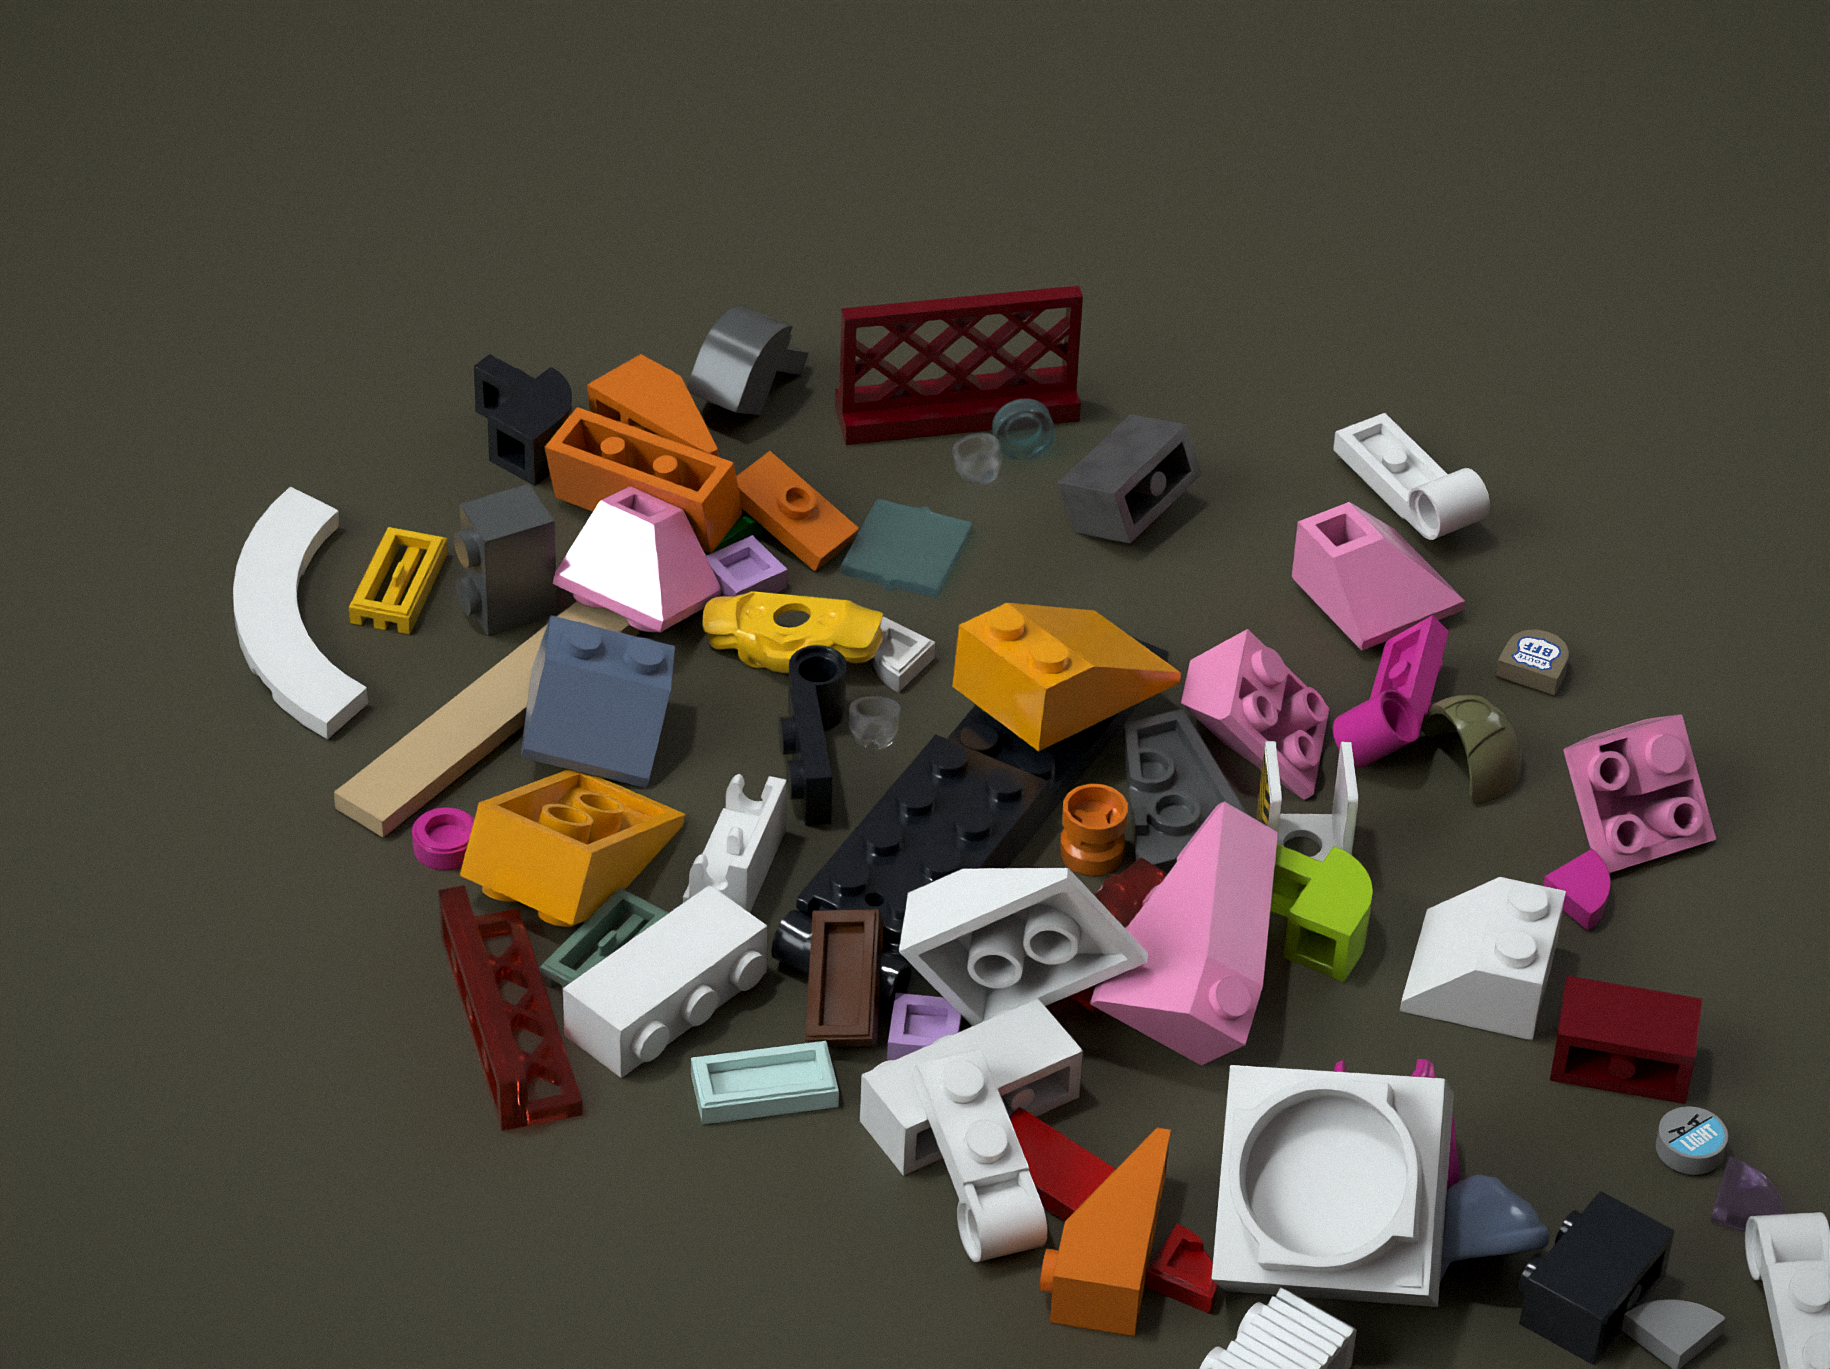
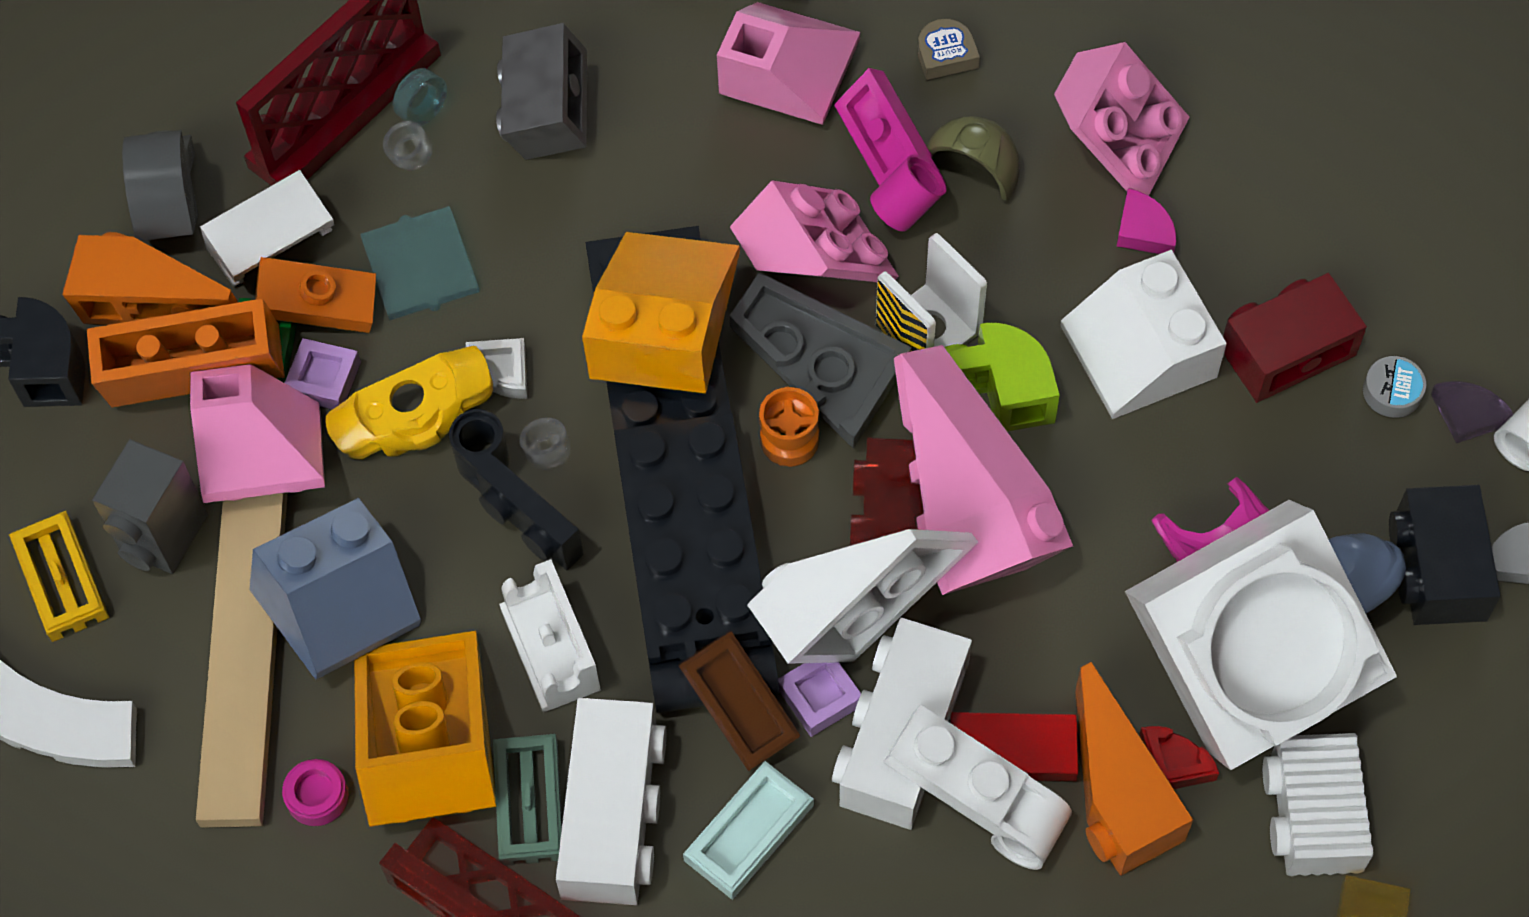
camera: 35 degrees left, 20 degrees up
(802, 436) = (265, 226): none -> white hinge

